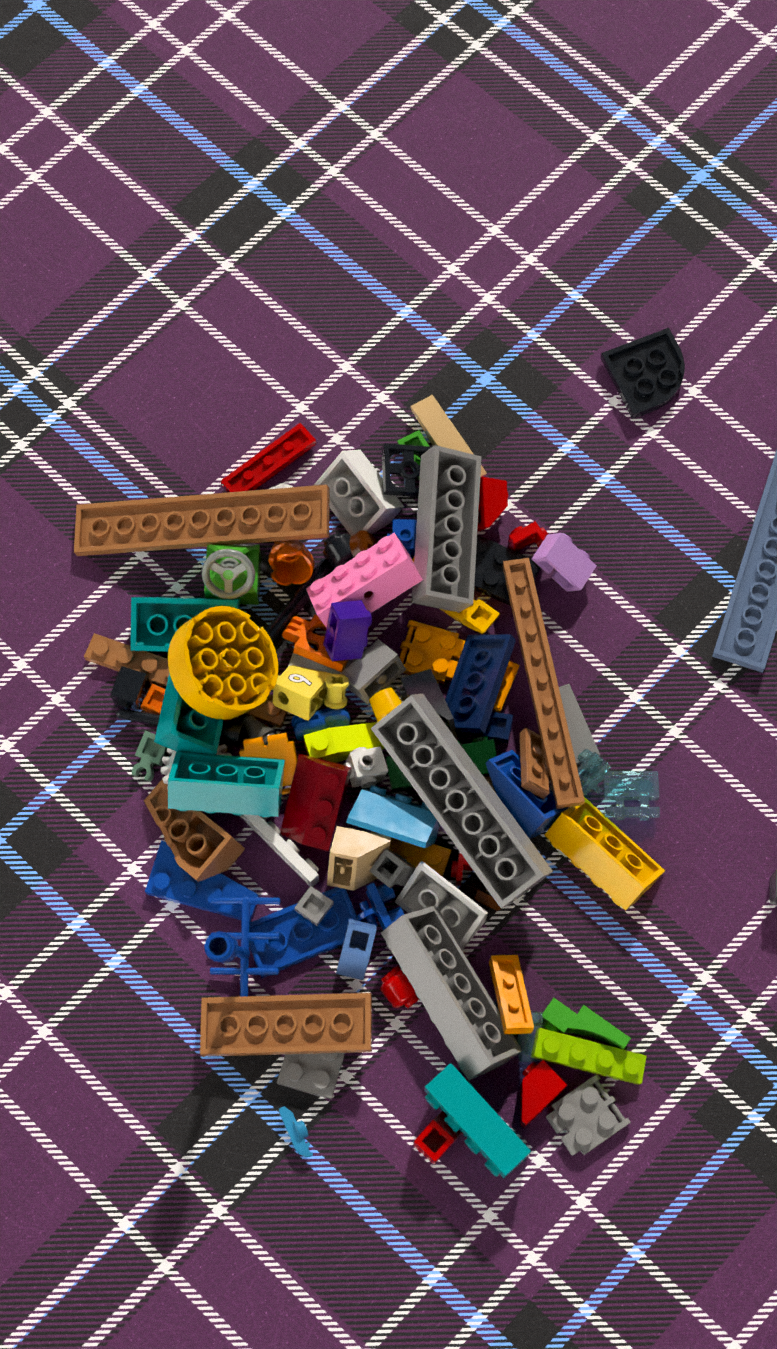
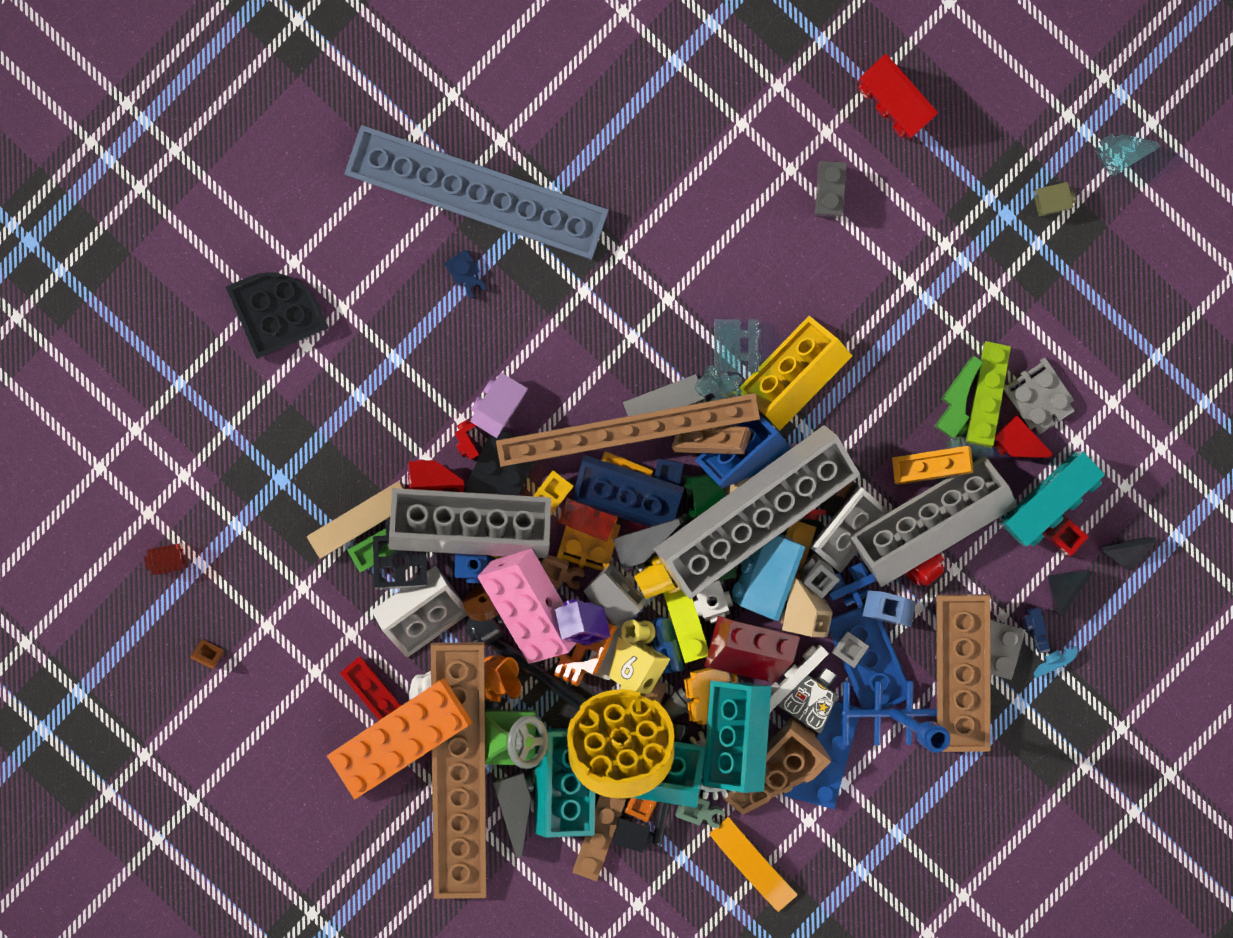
camera: 90 degrees left, 20 degrees up
(89, 808) = (752, 864): none -> light orange slope
(164, 579) = (515, 801): none -> dark grey slope
(235, 467) = (399, 738): none -> orange plate
(261, 867) = (812, 700): none -> torso
(320, 312) = (207, 654): none -> dark orange slope
(338, 1108) = (1035, 623): none -> dark blue plate
(377, 1143) = (1066, 587): none -> black slope
(396, 618) = (558, 572): none -> nougat plate
(410, 278) = (165, 559): none -> clear red brick
(415, 1215) = (1128, 552): none -> black slope
(449, 646) = (587, 519): none -> clear red slope
(694, 537) = (463, 270): none -> dark blue plate

